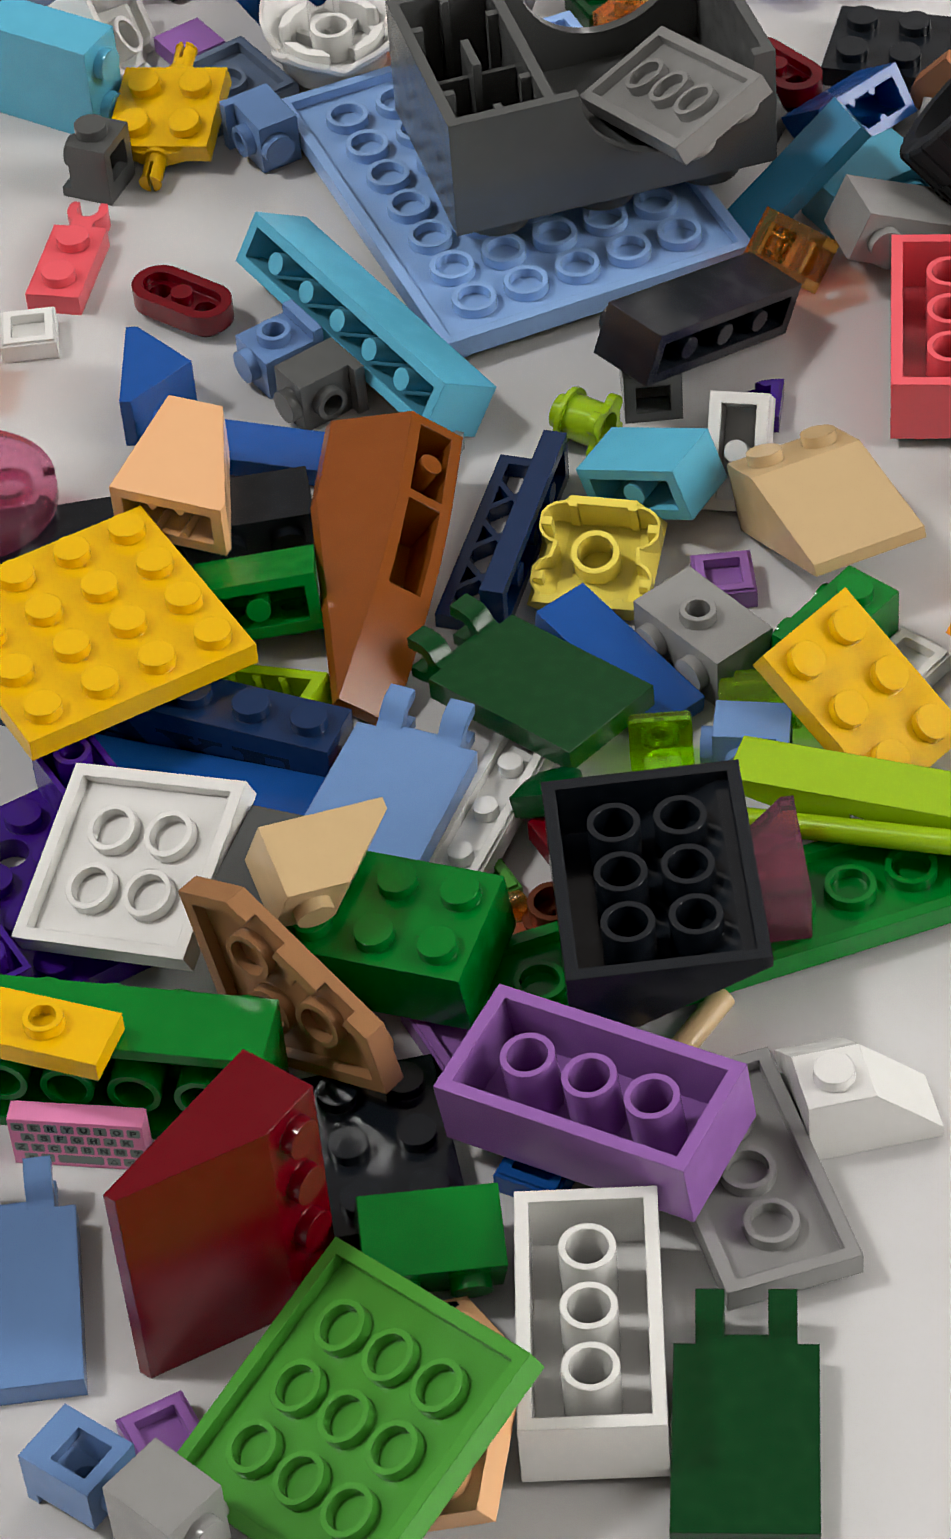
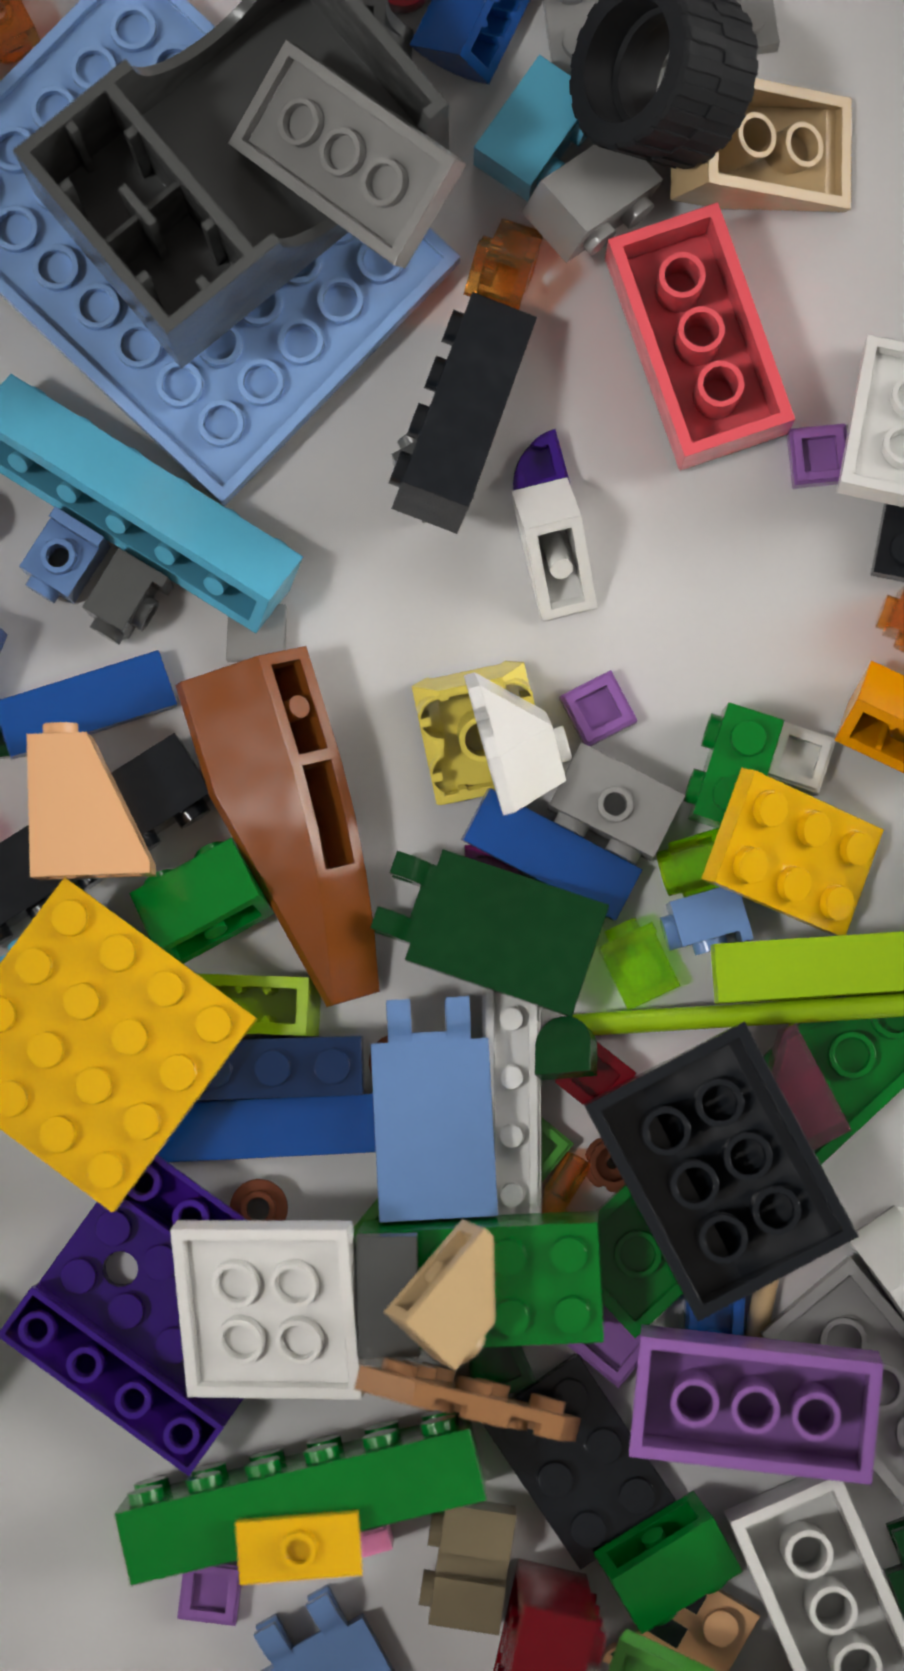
camera: 25 degrees left, 40 degrees up
(519, 542) = (402, 727): dark blue fence -> none
(584, 417) = (395, 555): lime brick -> none
(621, 537) = (518, 744): none -> white slope
(659, 467) = (495, 620): medium azure brick -> none
(802, 166) = (490, 148): dark azure tile -> none
(820, 501) = (674, 622): tan slope -> none

